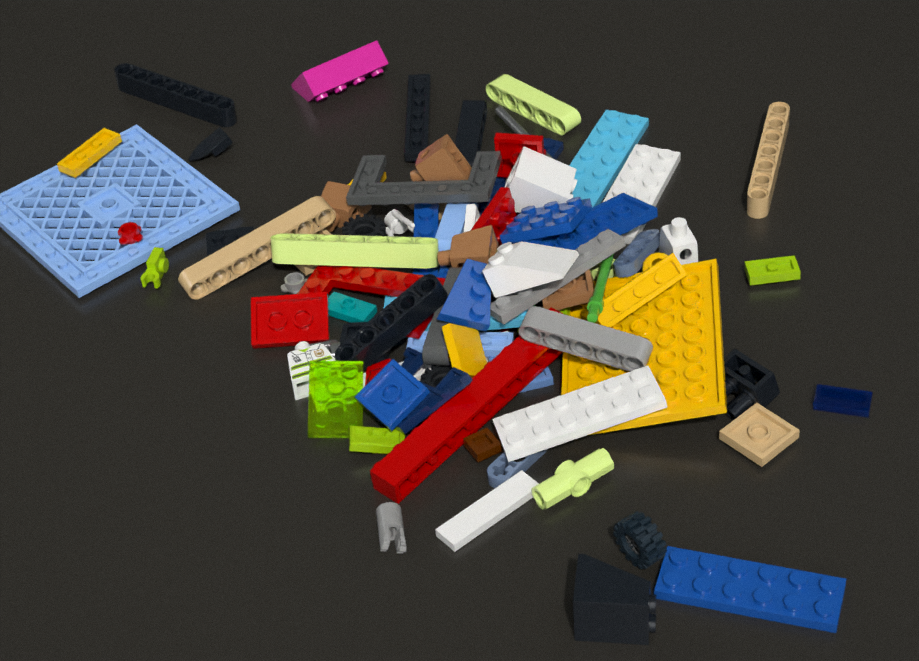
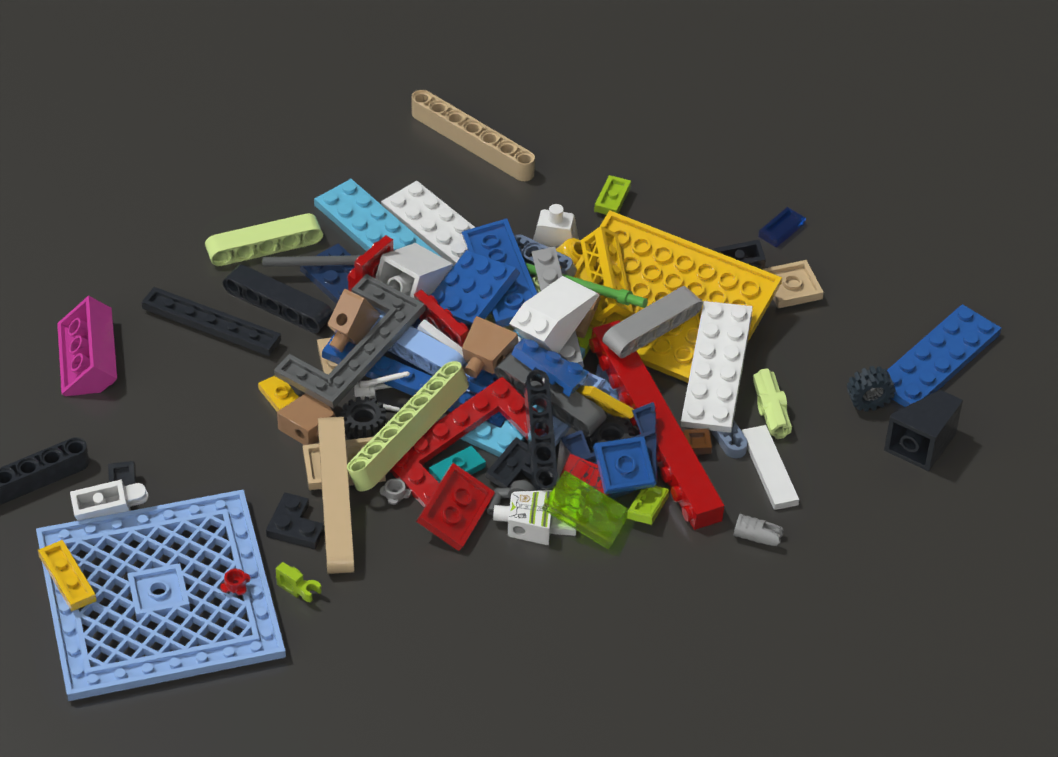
camera: 70 degrees left, 5 degrees up
(177, 139) = (107, 499): none -> white brick

